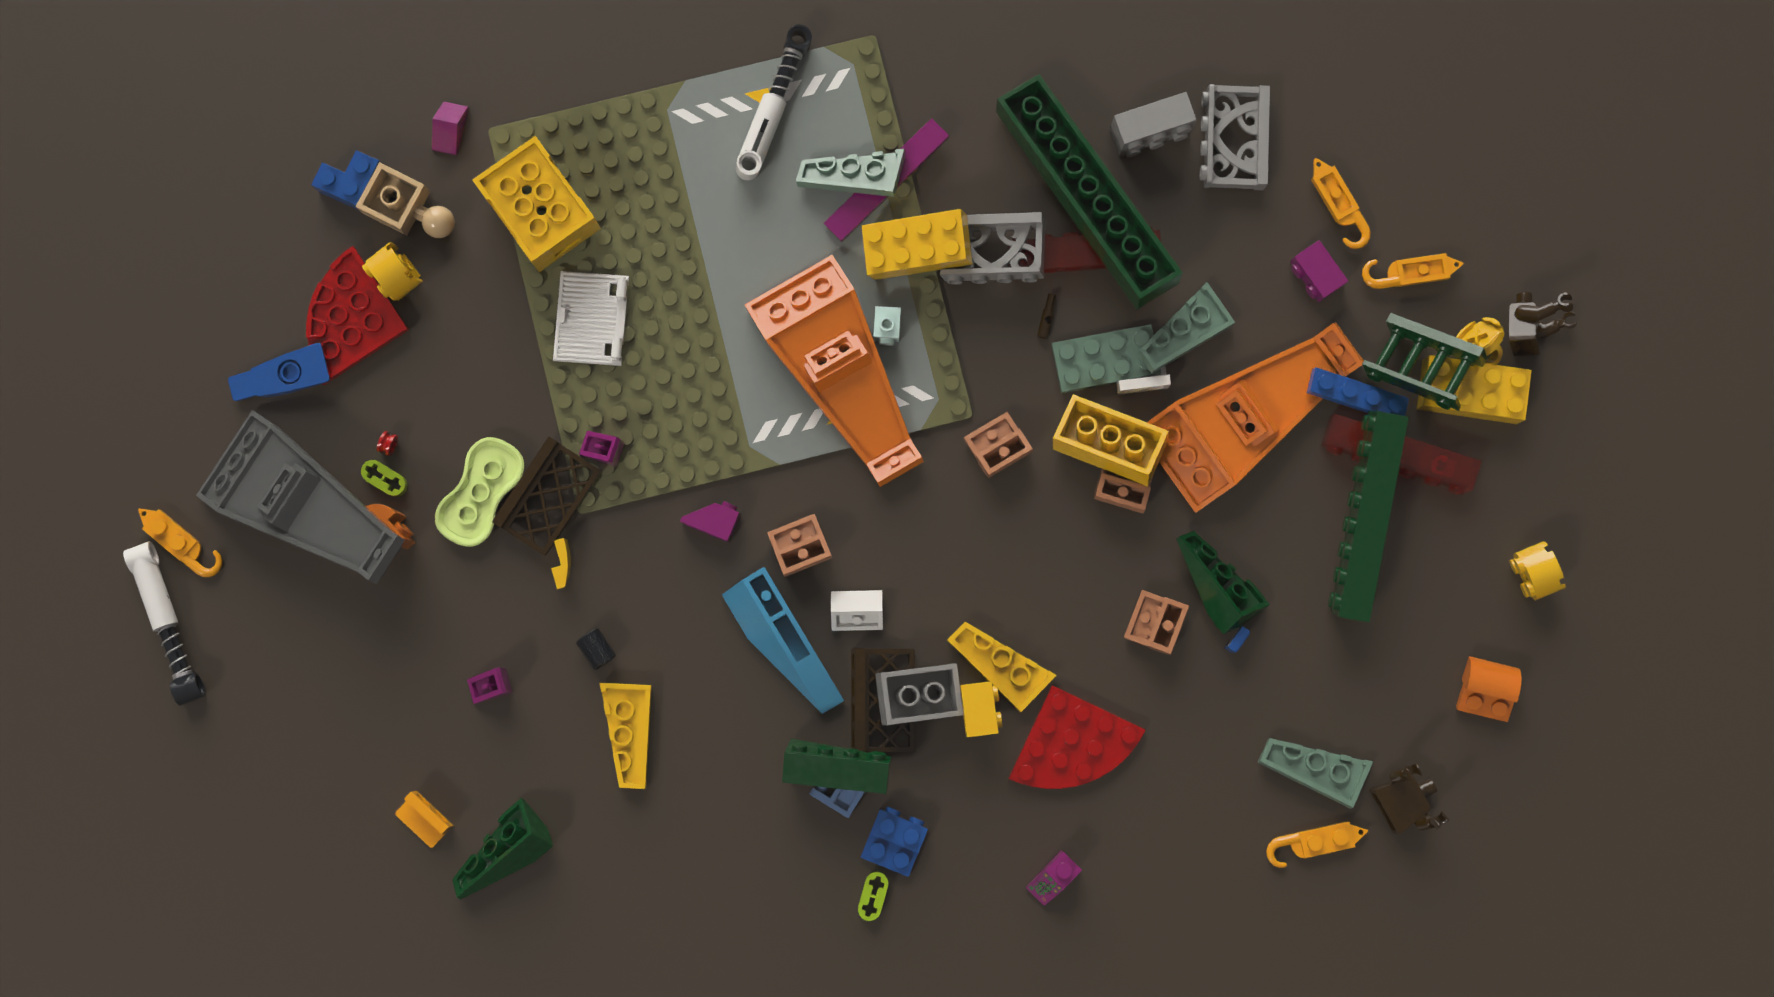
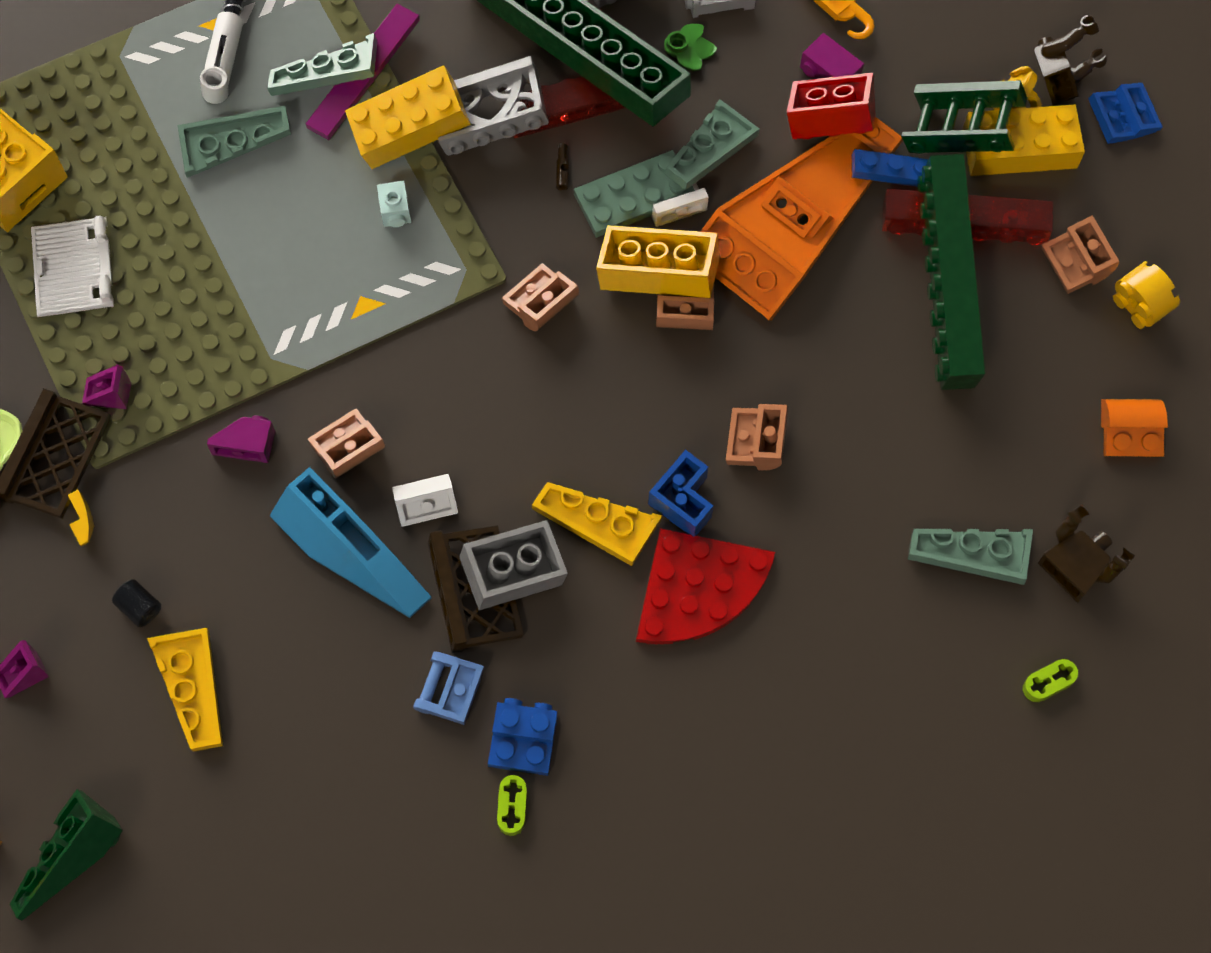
camera: 15 degrees left, 15 degrees down
(749, 221) = (225, 138): none -> sand green wing
(812, 323) = (341, 243): orange wing -> none
(835, 767) = (437, 660): dark green wedge -> none
(979, 709) = (585, 561): yellow brick -> none
(1053, 878) = (714, 734): magenta slope -> none
(1073, 659) = (677, 497): none -> blue brick
(1196, 220) = (693, 46): none -> bright green plate
(1224, 594) = (822, 395): dark green wedge -> none
(1237, 639) = (849, 436): blue tile -> none
(1307, 318) = (832, 106): none -> red slope
(1316, 841) = (997, 629): light orange plate -> none
(1350, 903) = (1053, 686): none -> lime beam
(1413, 271) = (927, 46): light orange plate -> none
(1491, 517) = (1081, 255): none -> nougat brick
(1577, 380) = (1125, 113): none -> blue slope

